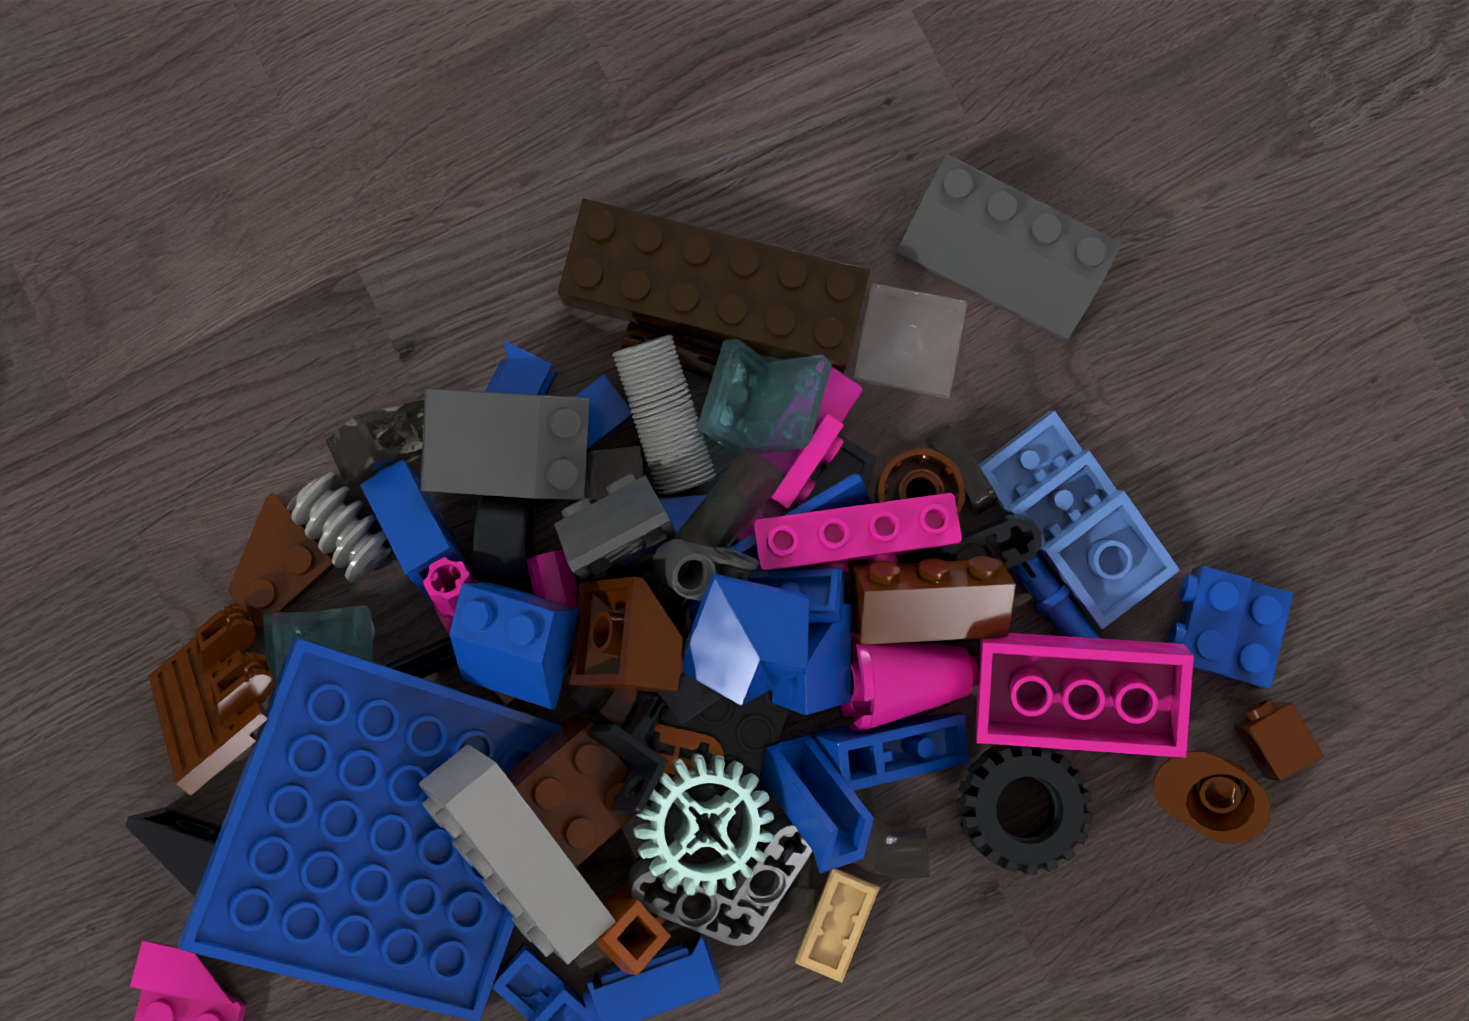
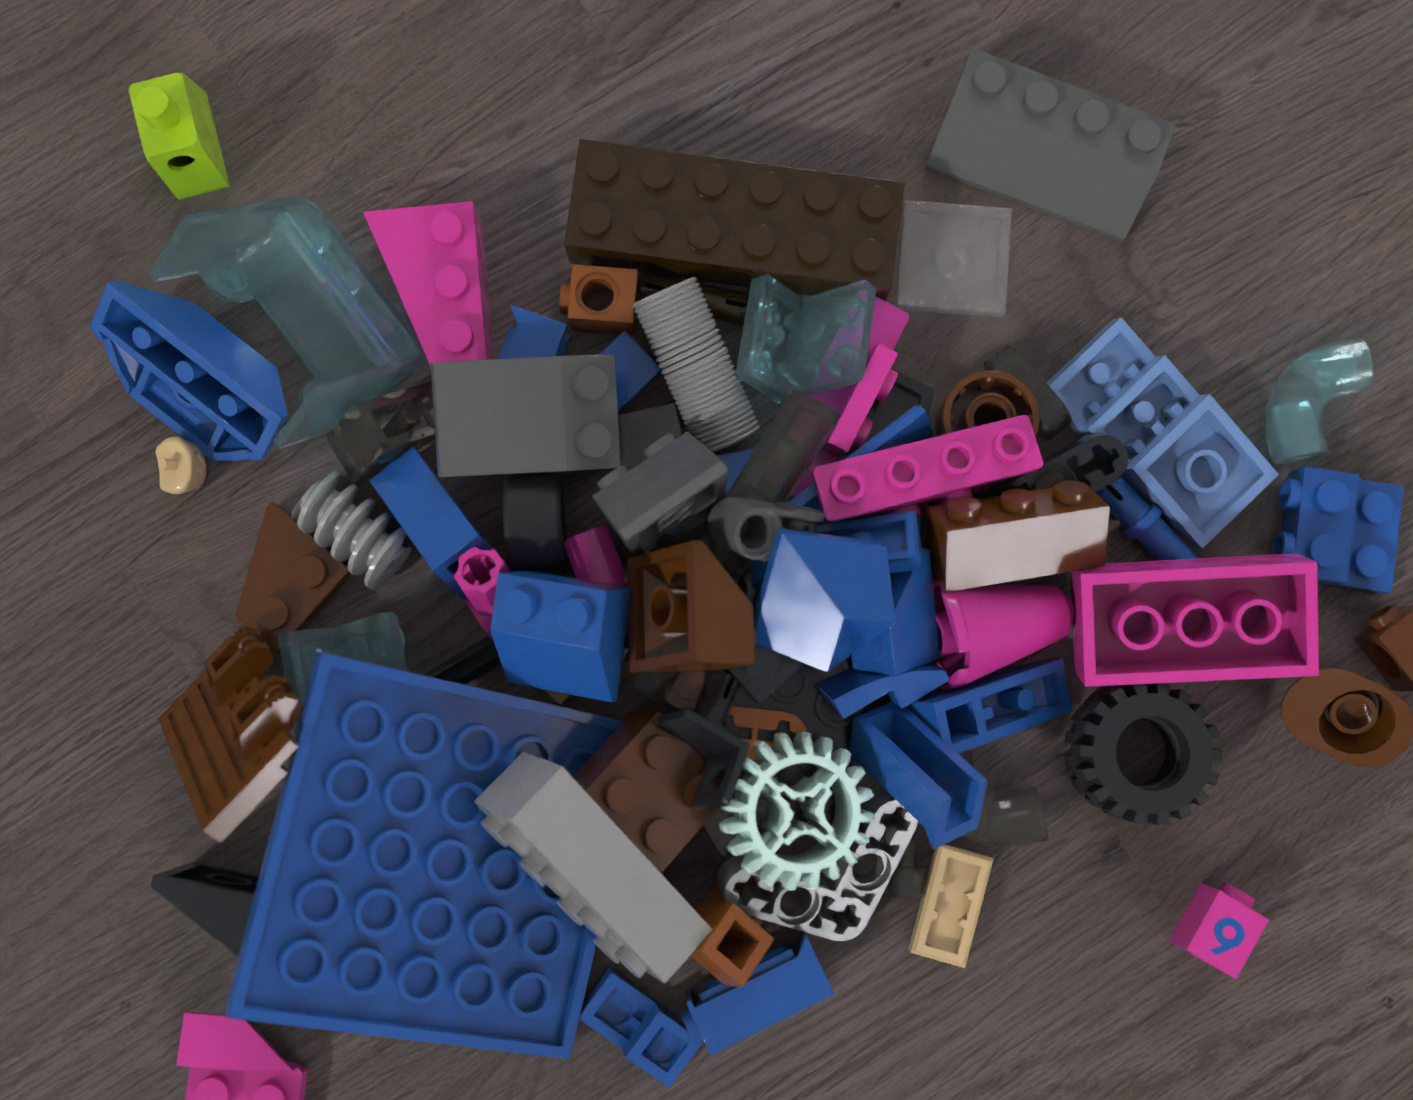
camera: 10 degrees left, 0 degrees up
(193, 451) = (180, 465): none -> tan piece
(213, 369) = (191, 372): none -> blue wedge
(223, 145) = (177, 123): none -> lime torso
(331, 310) = (313, 293): none -> clear light blue windscreen
(444, 310) = (440, 276): none -> dark pink wedge
(600, 360) = (619, 316): none -> dark orange brick
(771, 721) = (857, 688): none -> blue slope
(1076, 973) = (1220, 928): none -> dark pink brick
(1212, 496) = (1303, 390): none -> clear light blue cylinder

